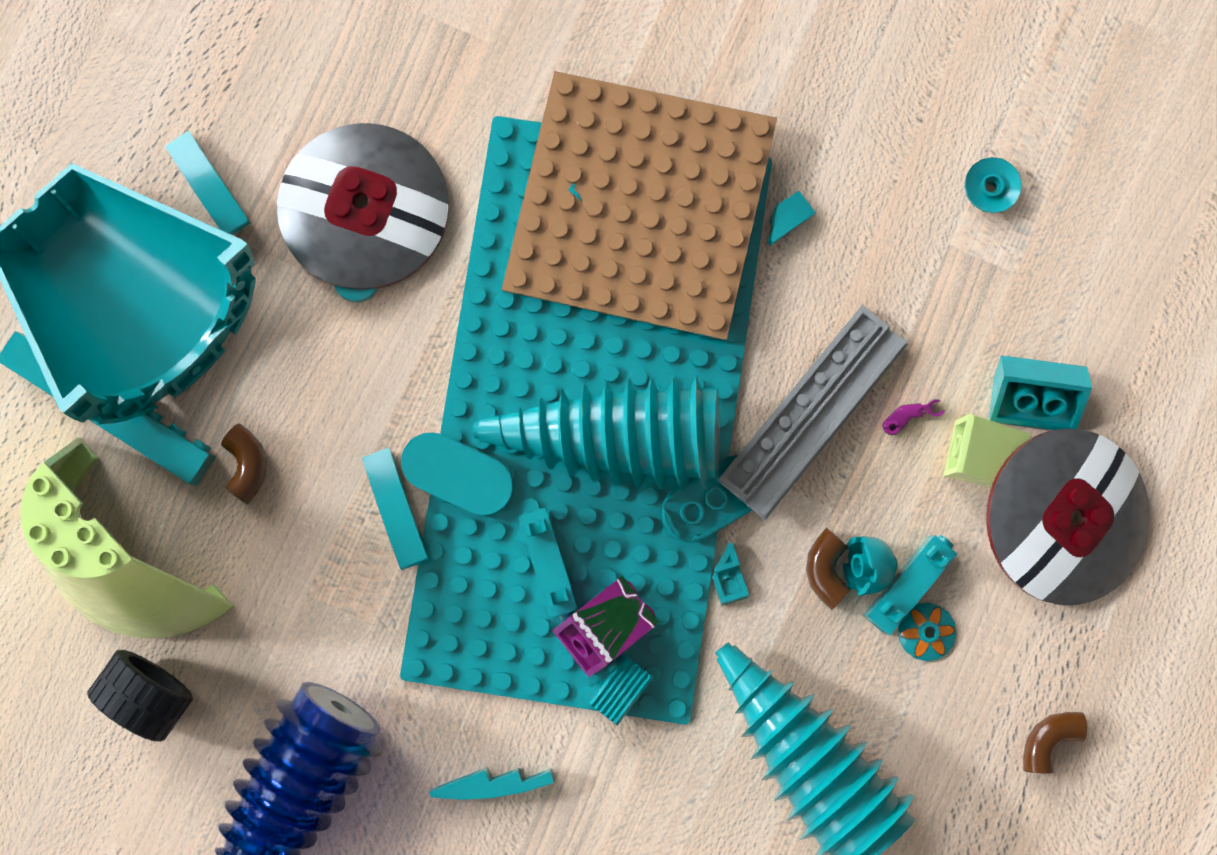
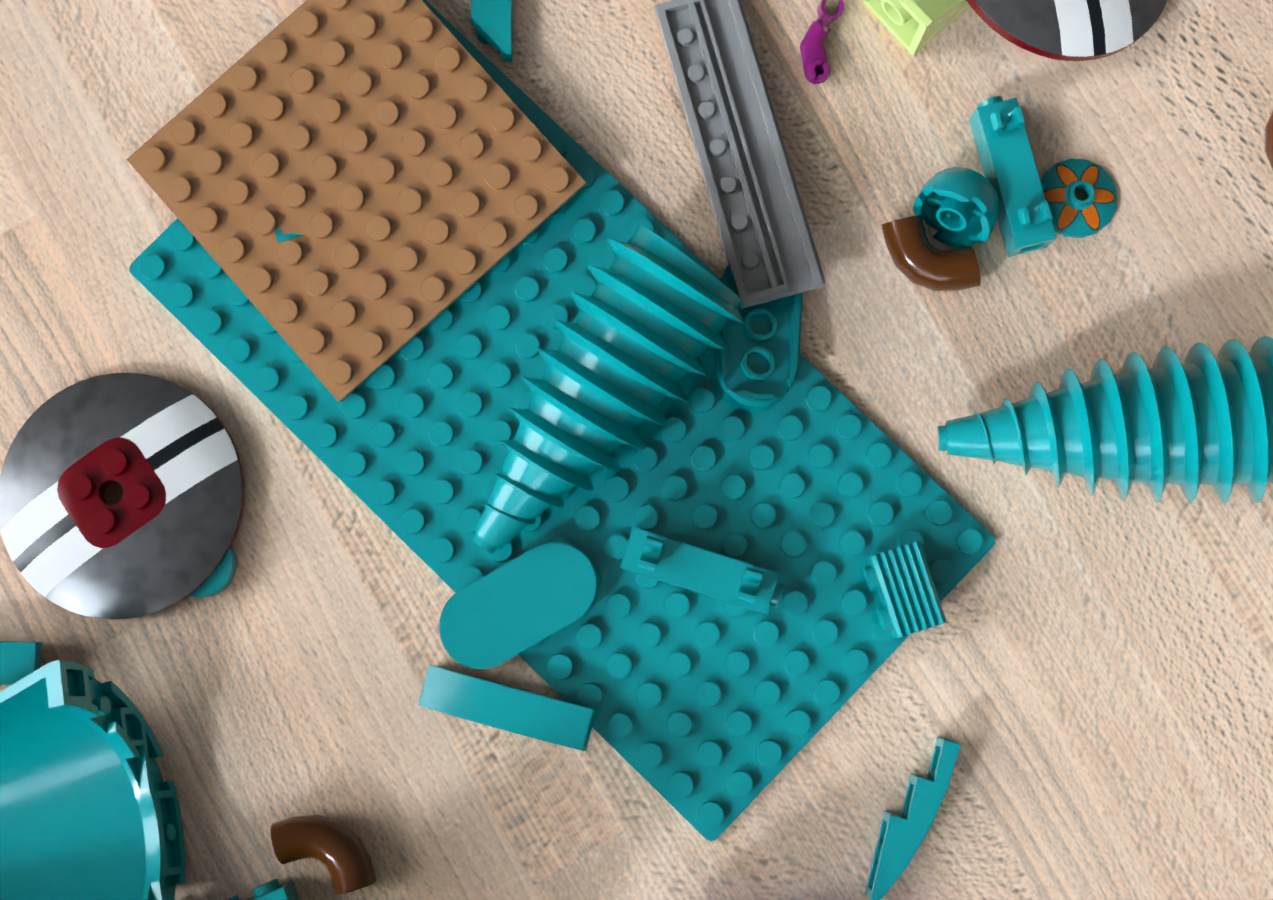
camera: 50 degrees left, 0 degrees up
(606, 626) = (821, 555): slope -> none
(729, 578) = (861, 377): teal slope -> none

